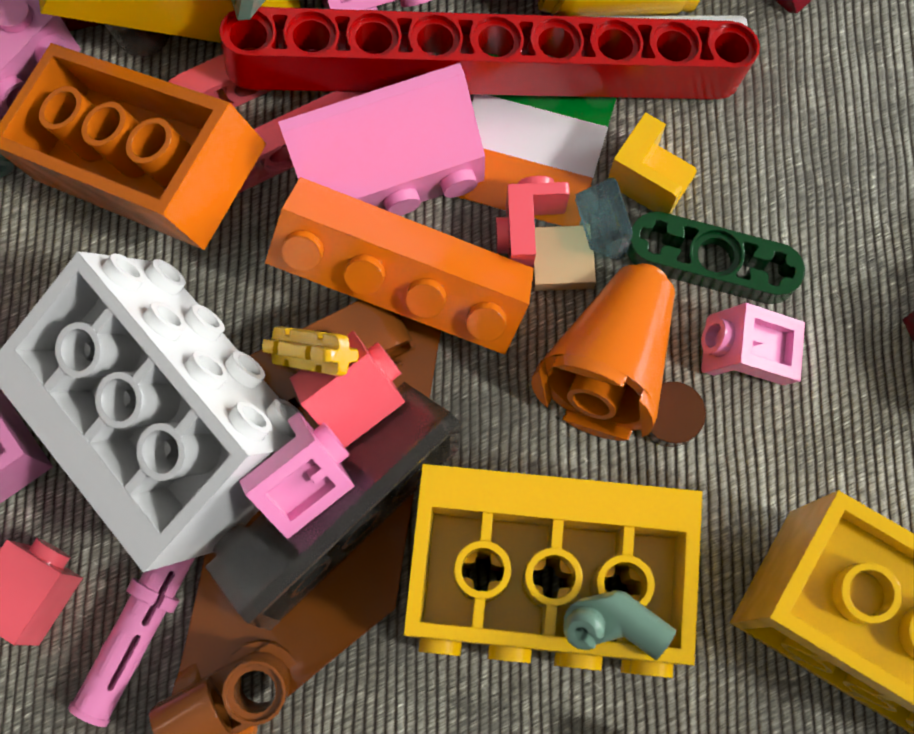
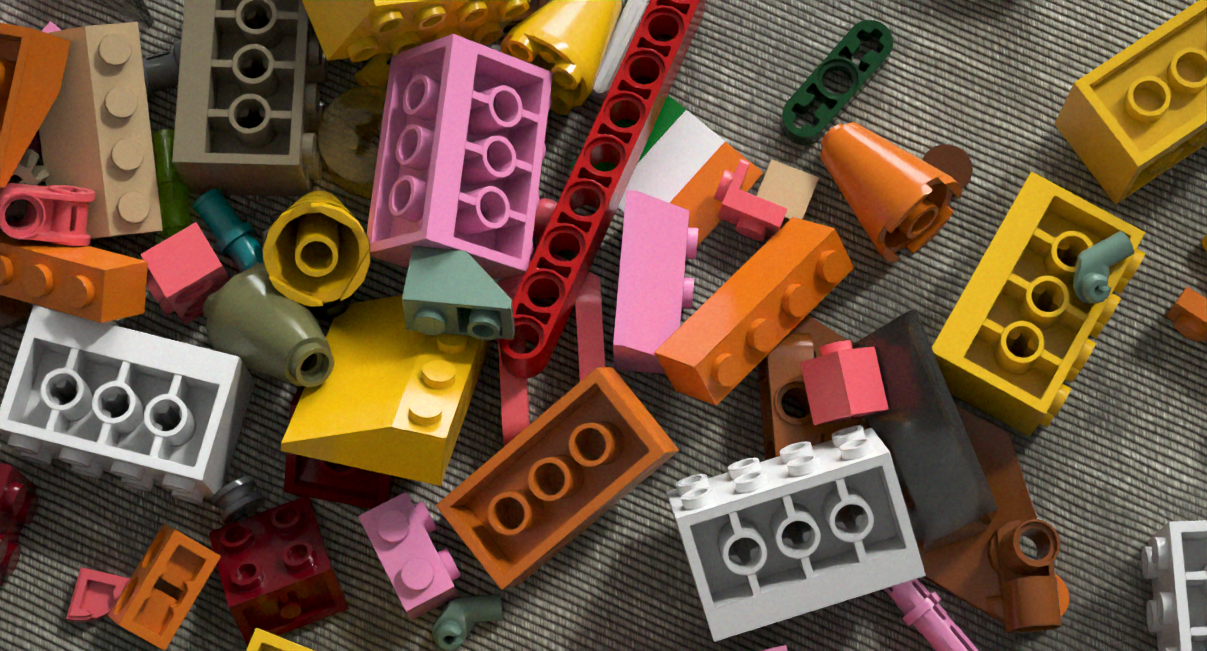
camera: 65 degrees left, 0 degrees up
(299, 477) = (908, 434): bright pink bracket -> none
(310, 350) = (808, 396): yellow axle -> none
(605, 219) = (777, 145): clear light blue slope -> none
(649, 171) = (745, 94): yellow panel -> none
(753, 344) = (920, 88): bright pink bracket -> none

